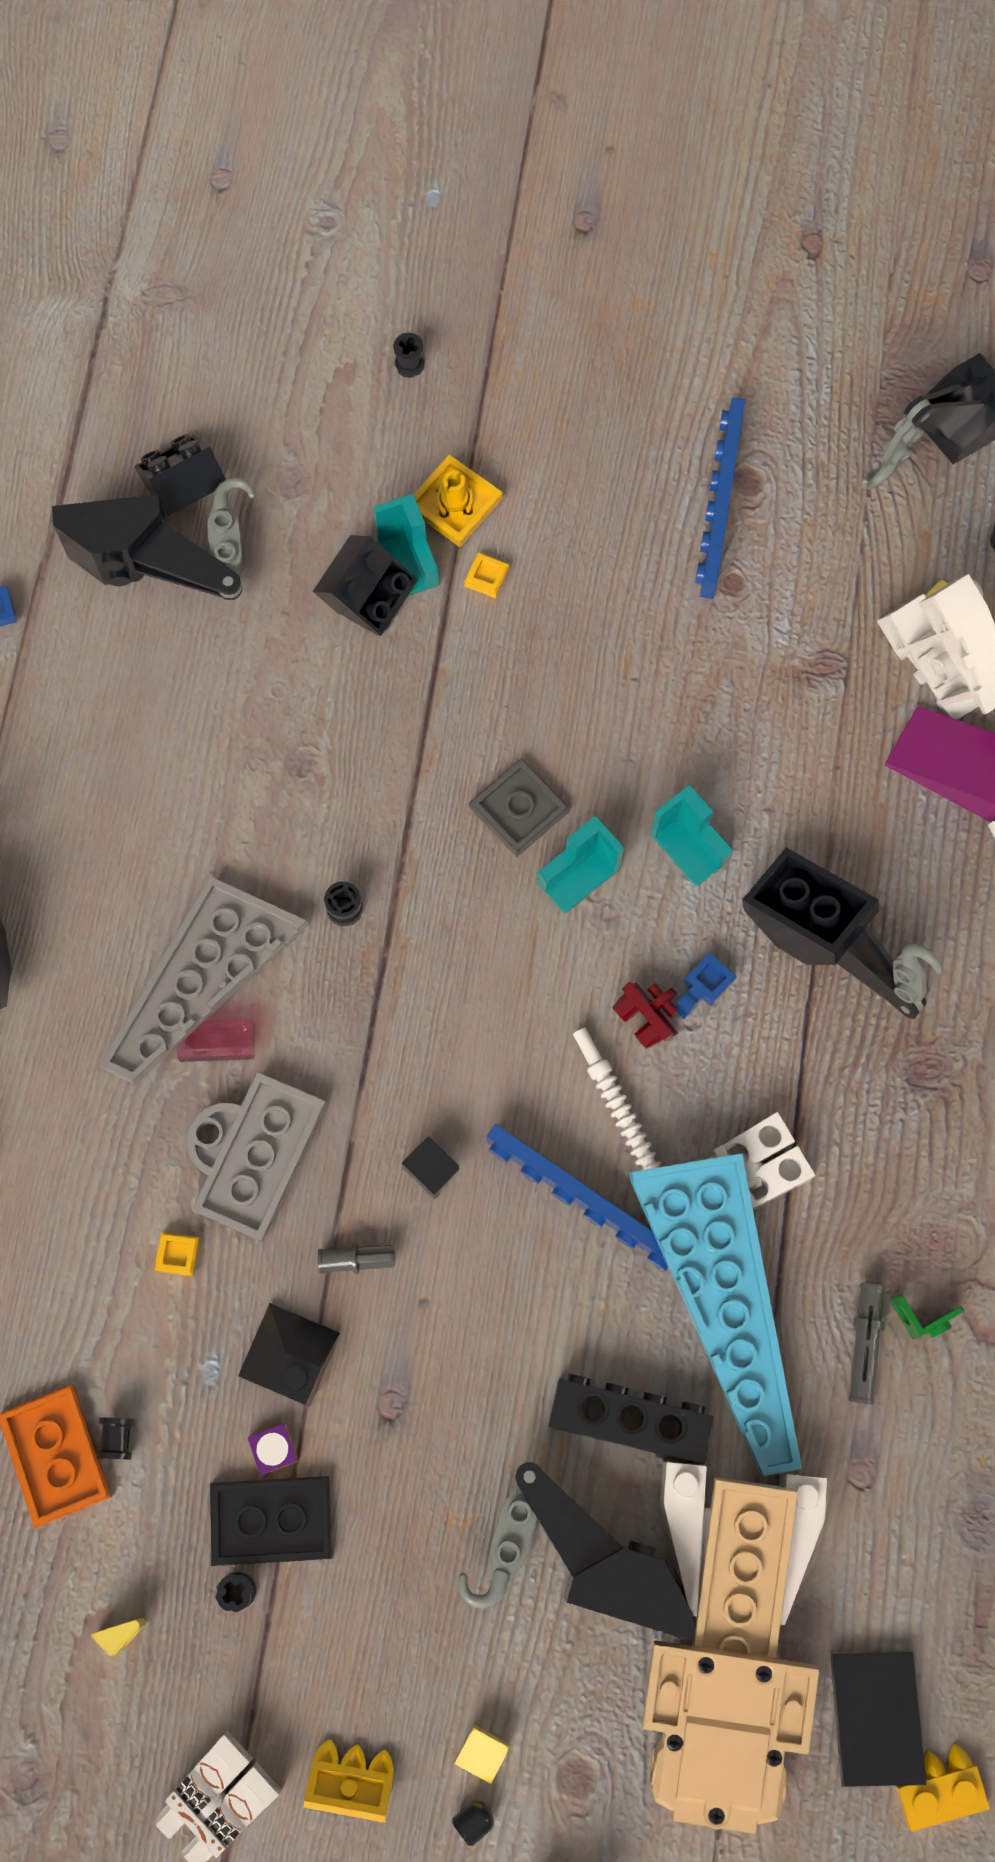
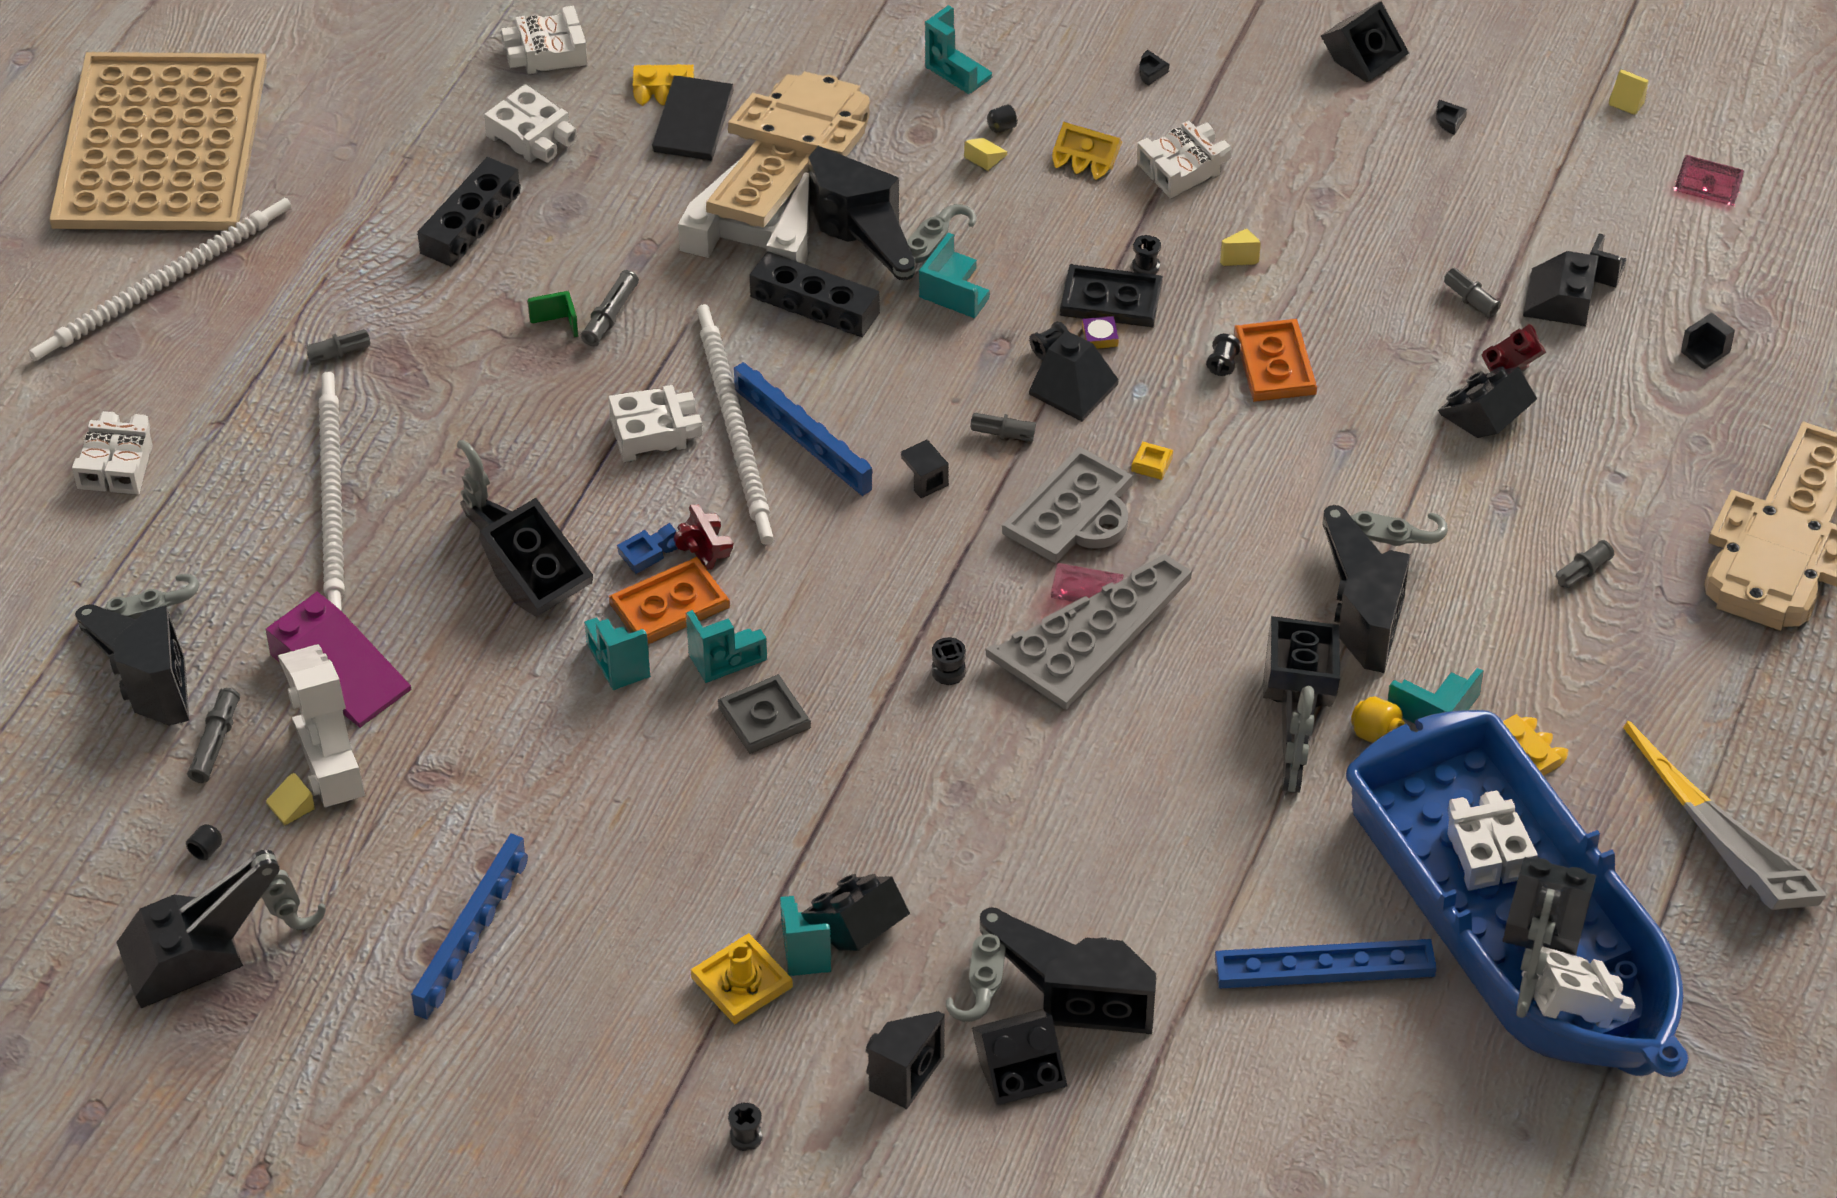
camera: 165 degrees left, 25 degrees down
(279, 430) = (905, 1056): none -> black slope
(328, 1412) = (1042, 341): none -> black bush
(476, 1484) = (945, 280): none -> teal panel
(486, 575) = (730, 912): yellow tile -> none
(659, 928) = (663, 600): none -> orange tile
(714, 1255) = (712, 347): medium azure wing -> none

